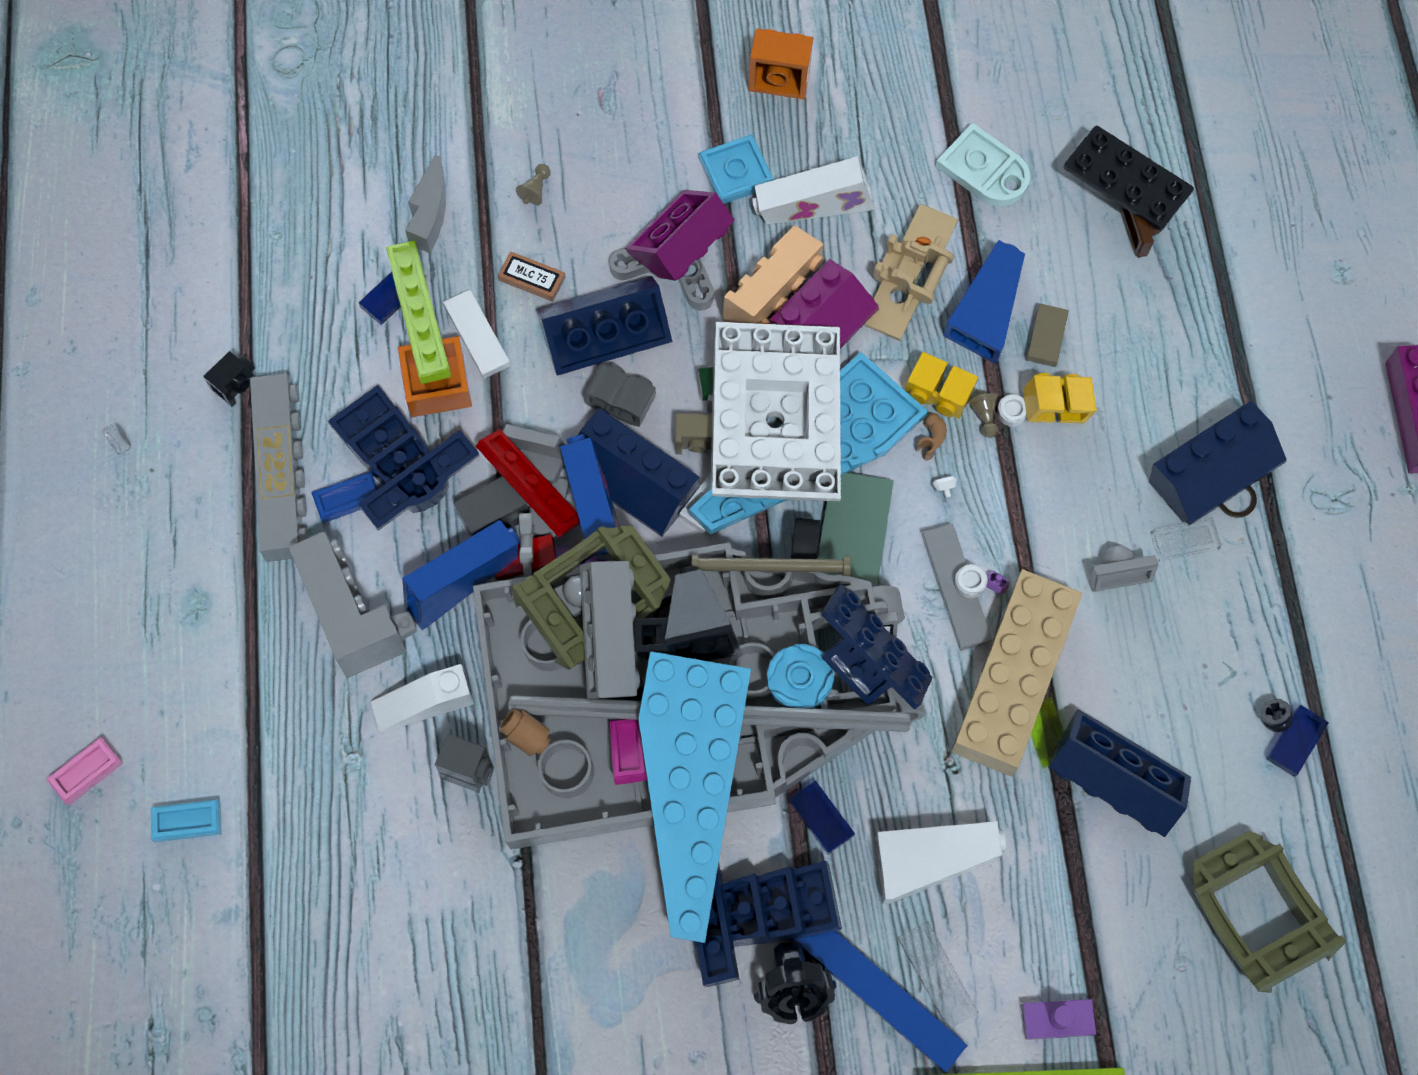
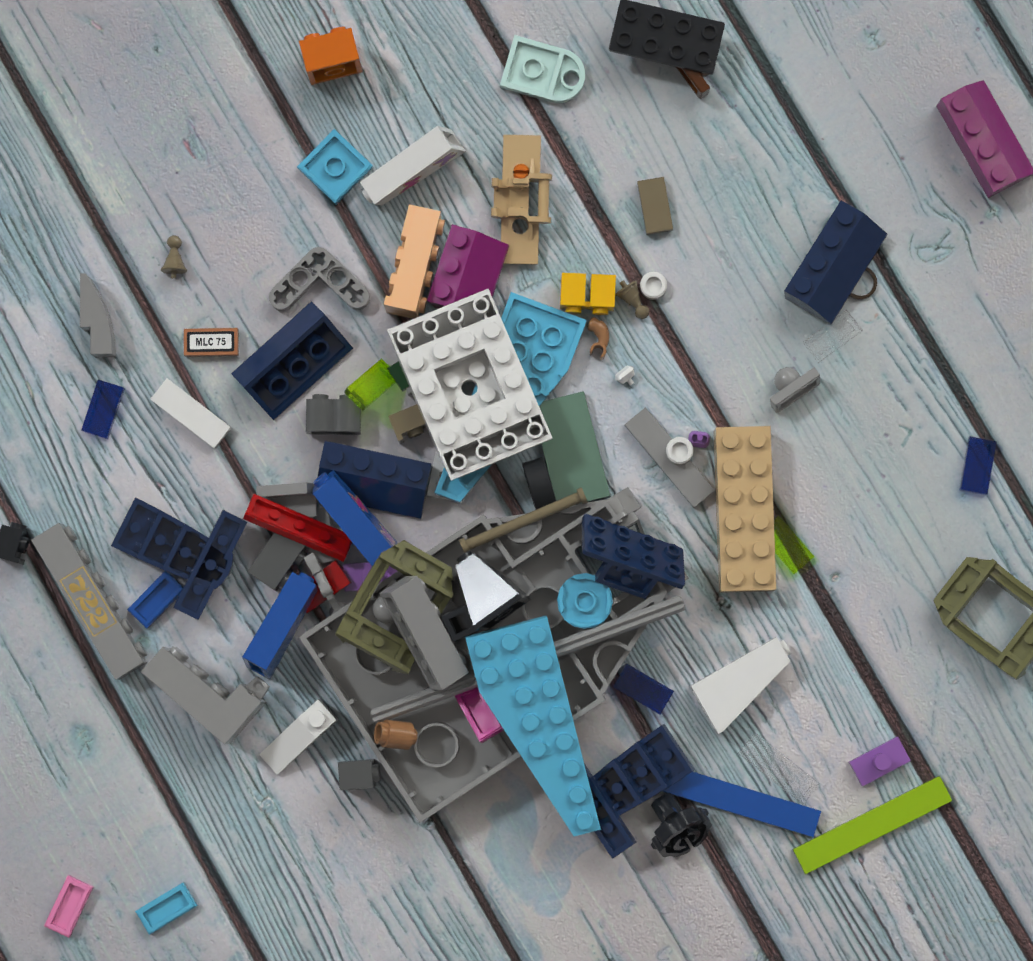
camera: 20 degrees left, 15 degrees up
(418, 312) = (138, 423): lime tile -> none
(438, 395) = (178, 470): orange brick -> none
(672, 379) = (370, 385): none -> clear neon green tile
(681, 234) = (318, 254): magenta slope -> none
(986, 308) = (597, 207): blue slope -> none
(1068, 396) = (689, 262): yellow piece -> none
(1121, 773) = (854, 554): dark blue slope -> none
(1268, 711) = (947, 449): black bush -> none

